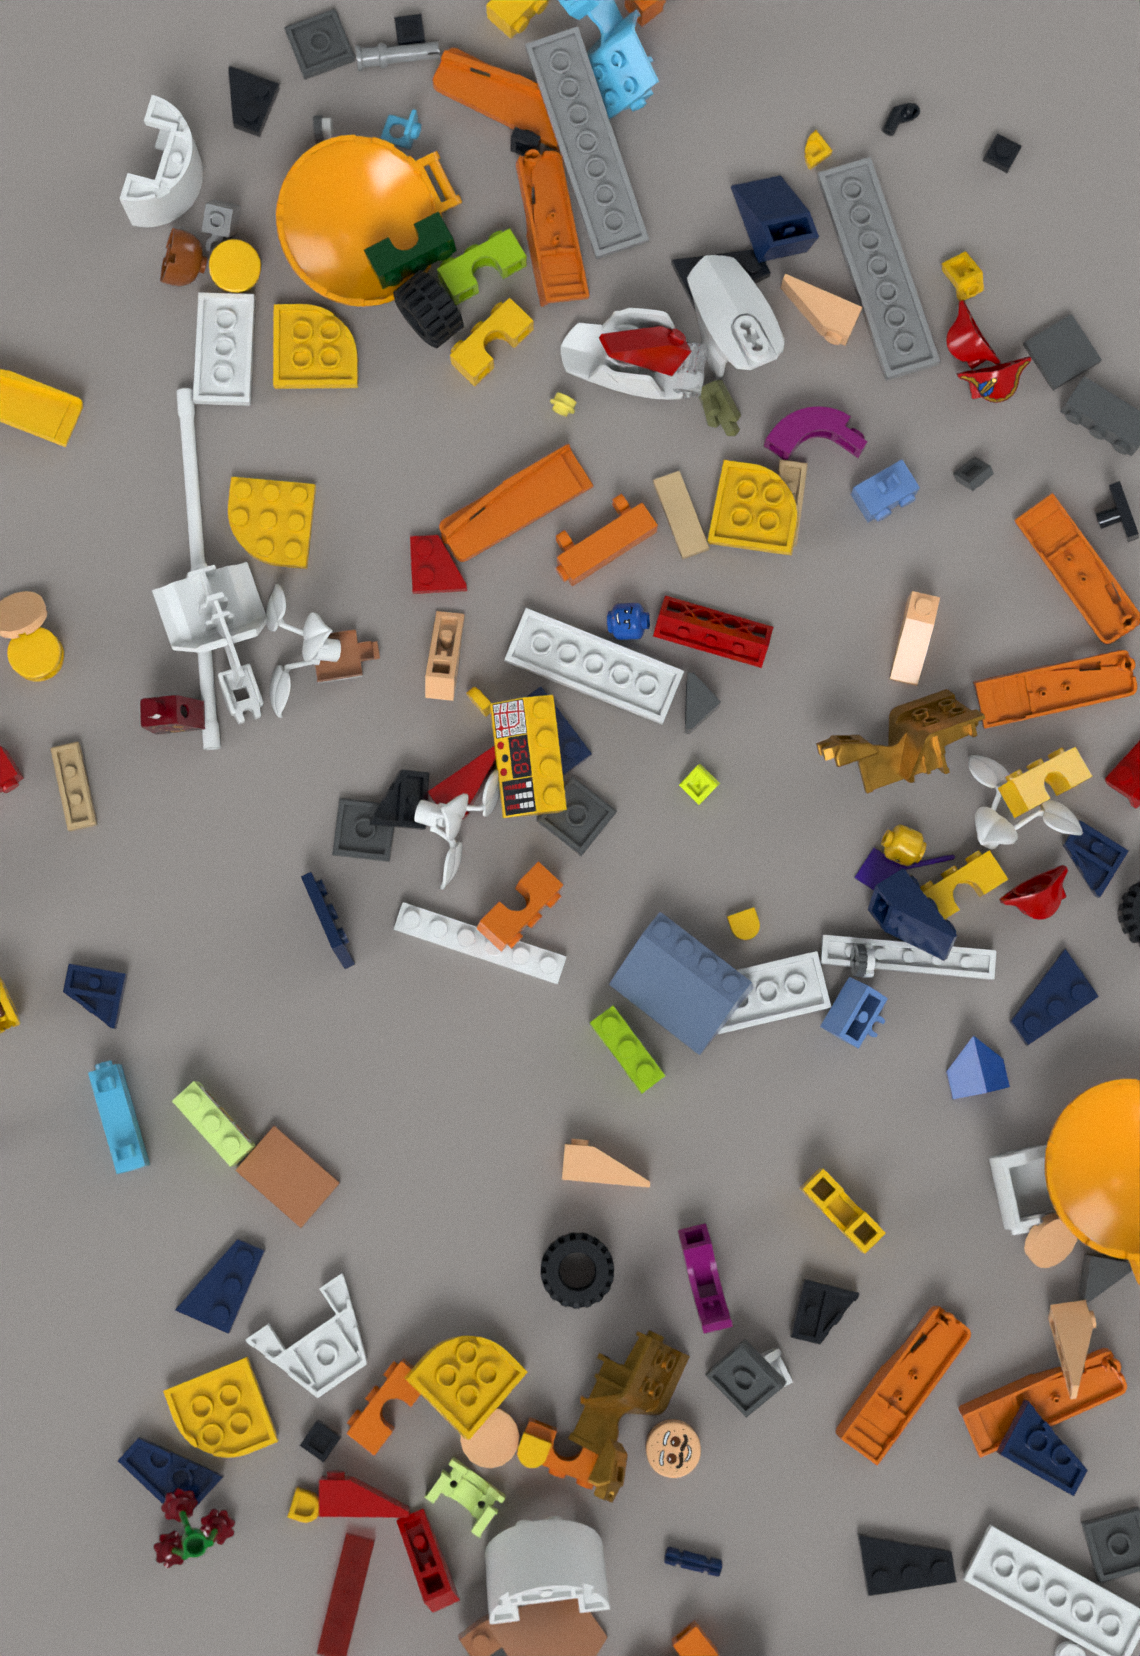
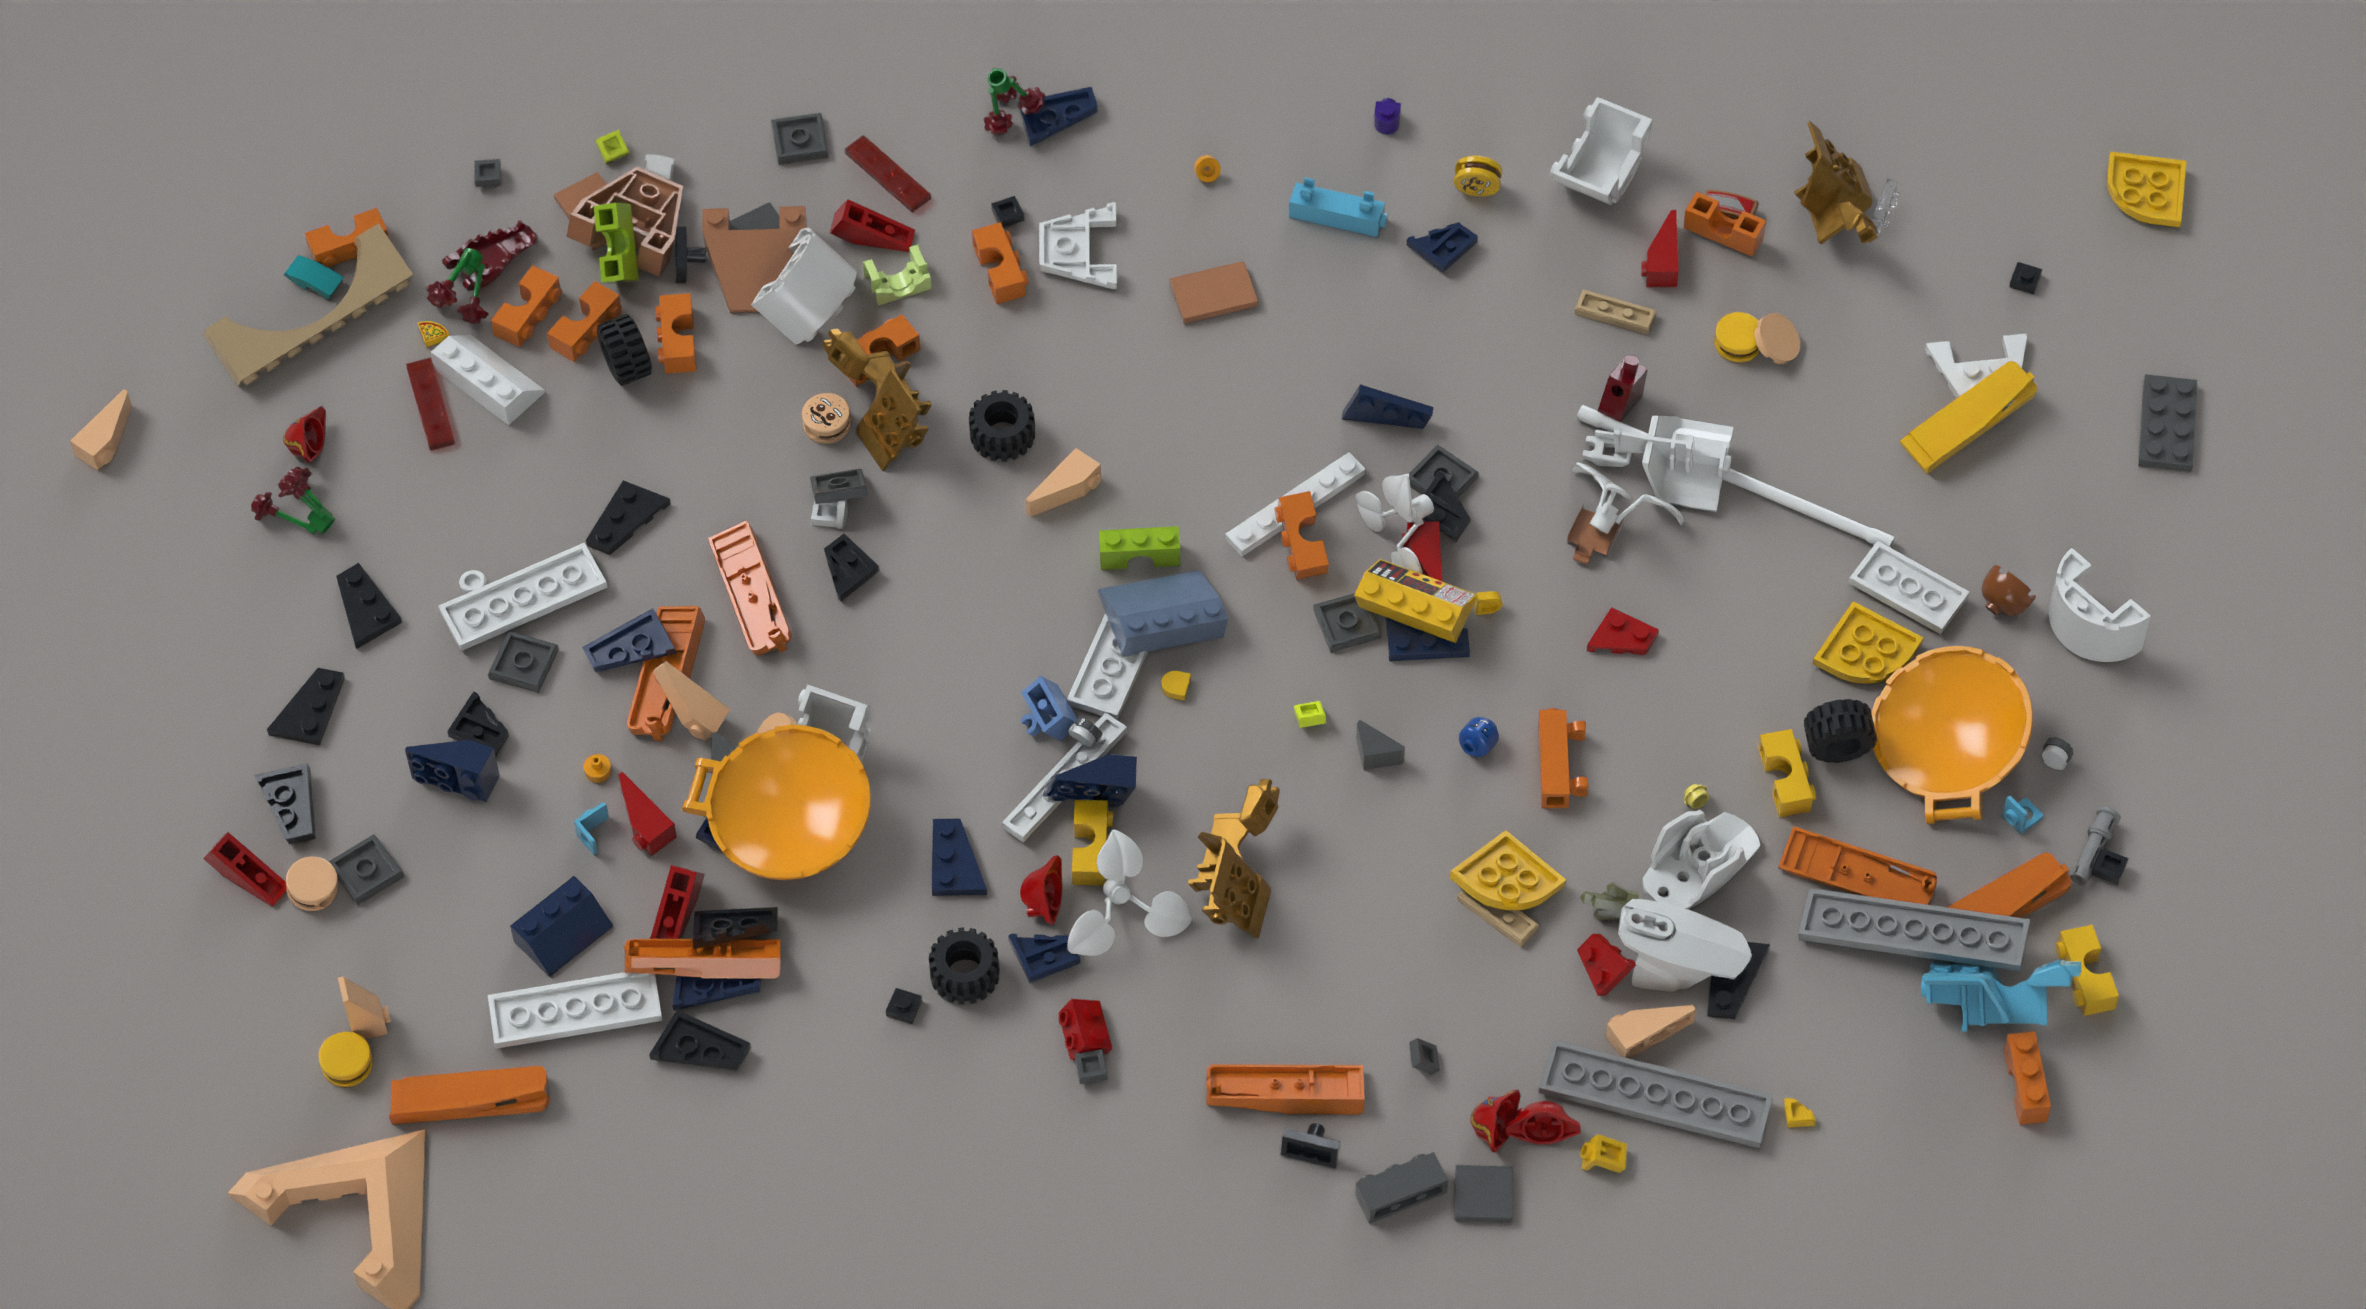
camera: 125 degrees right, 25 degrees down
(146, 1277) = (1207, 168): none -> light orange tile
(214, 1123) = (1287, 263): yellowish green brick -> none
(220, 220) = (2021, 637): light grey brick -> none
(223, 1411) = (1075, 166): yellow plate -> none
(224, 1288) = (1163, 214): dark blue wing -> none
(234, 266) = (1975, 625): yellow head -> none
(251, 100) = (2122, 722): black wing -> none
(272, 519) = (1740, 548): yellow plate -> none
(304, 1506) = (970, 182): yellow tile -> none
(319, 44) = (2143, 798): dark grey tile -> none
(354, 1498) = (950, 210): red slope -> none
(394, 265) = (1899, 768): dark green arch -> none
(444, 656) = (1542, 598): light nougat slope -> none
(466, 1380) = (979, 312): yellow plate -> none
(493, 1442) = (928, 313): light nougat tile -> none
(499, 252) = (1858, 781): lime arch -> none
(515, 504) = (1633, 716): orange piece -> none
(523, 141) = (1948, 893): black plate -> none
(533, 1450) = (897, 322): yellow tile -> none
(594, 666) = (1459, 695): white plate -> none
(649, 348) = (1694, 849): red slope -> none
(680, 515) = (1543, 829): tan tile -> none
(691, 372) = (1656, 888): clear piece -> none
(693, 1561) = (737, 388): dark blue axle -> none
(704, 1278) = (929, 504): magenta arch -> none
(712, 634) = (1422, 788): red fence -> none
(774, 218) = (1755, 1033): dark blue slope -> none
(787, 378) = (1604, 963): none -> red wing
(814, 423) = (1548, 970): magenta arch -> none
(842, 1210) = (926, 616): yellow arch -> none
(878, 867) = (1145, 804): dark purple piece -> none
(885, 491) = (1455, 982): medium blue brick -> none
(898, 115) = (1787, 1194): black arm -> none
(903, 845) = (1154, 824): yellow head -> none
(914, 637) = (1319, 933): light nougat slope -> none
(976, 1071) = (937, 773): slope -> none
(1002, 153) = (1696, 1257): black plate -> none
(1027, 789) = (1130, 968): yellow arch -> none
(1055, 688) = (1201, 1008): orange piece -> none

